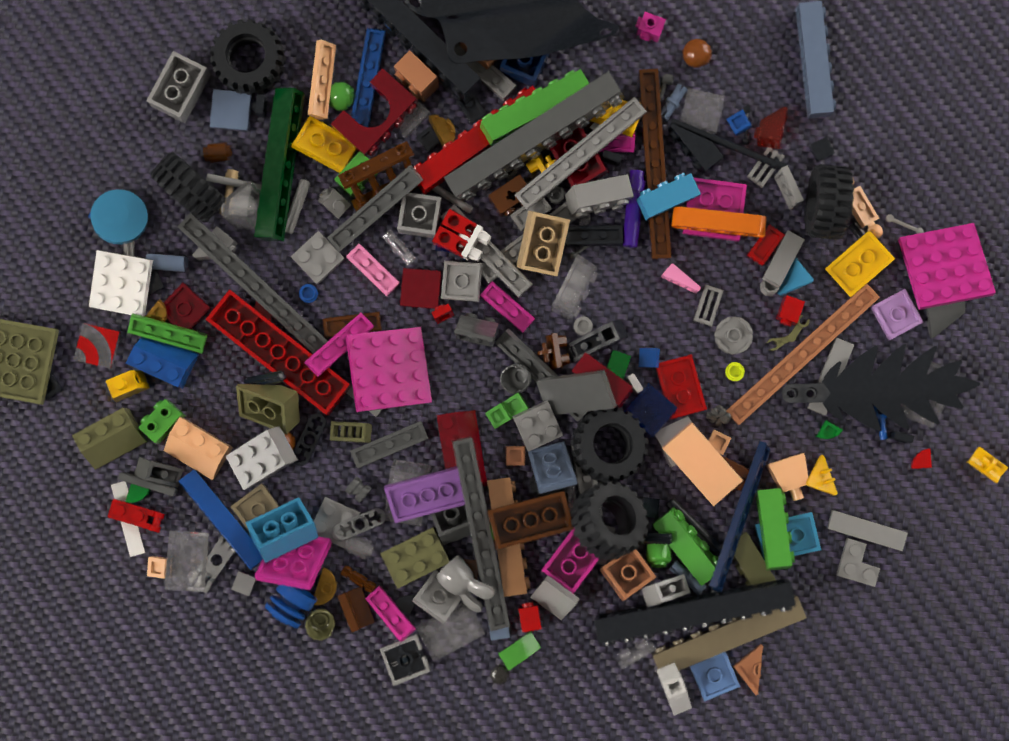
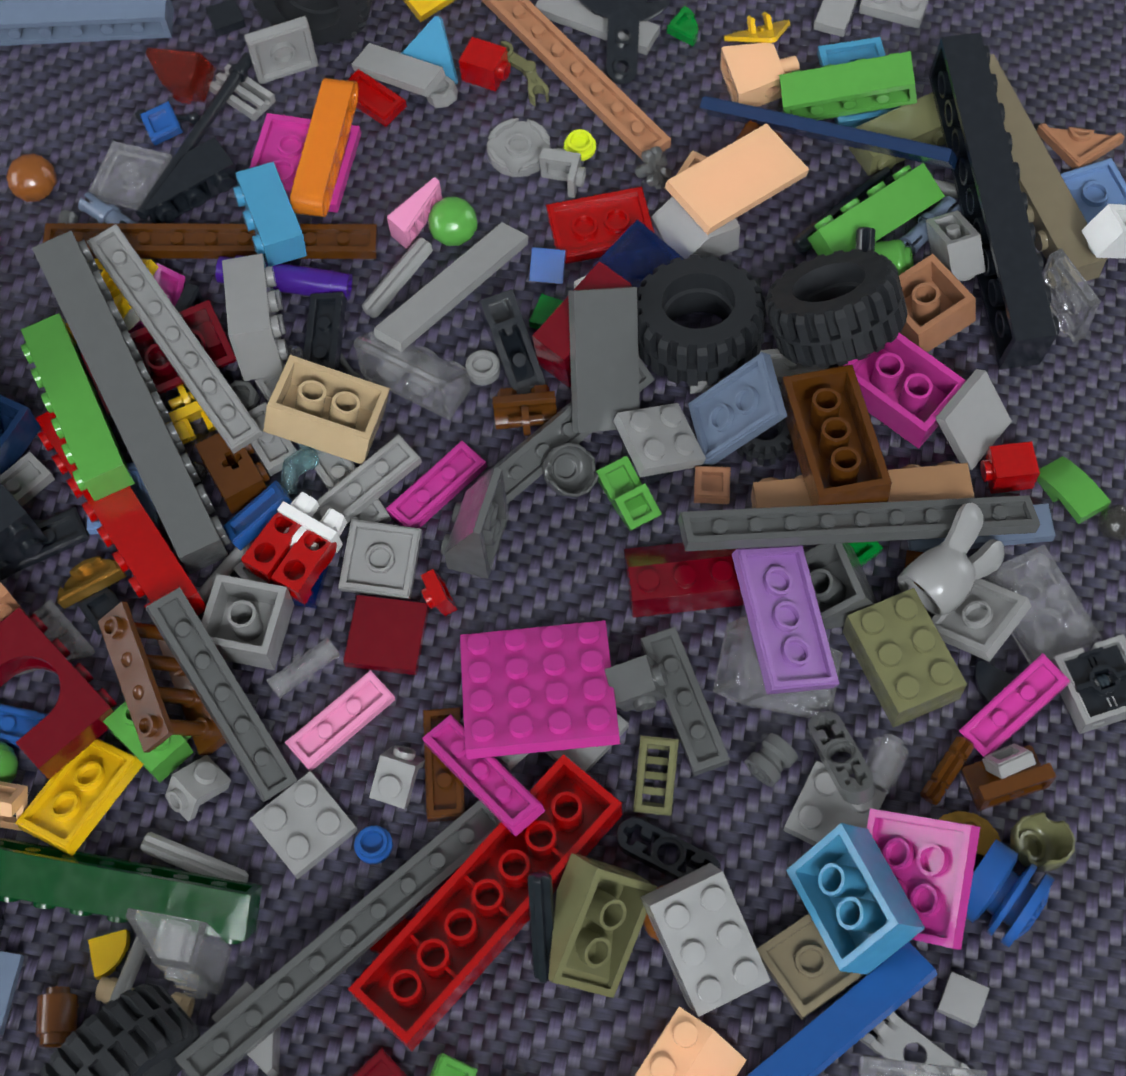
camera: 85 degrees left, 20 degrees down
(250, 171) = (108, 952): none -> yellow tile
(343, 301) = (396, 776): none -> light grey bracket
(360, 609) = (1008, 761): none -> light grey tile
(392, 420) = (637, 683): none -> dark grey brick
(482, 213) = (256, 515): none -> blue tile
(513, 229) = (296, 465): none -> clear light blue arm
(626, 305) = (450, 287): none -> light grey tile
(638, 272) = (397, 277): none -> light grey axle
(677, 301) = (452, 221): none -> bright green hair
(703, 321) = (462, 185): light grey tile -> none
(719, 361) = (563, 166): none -> light grey bracket

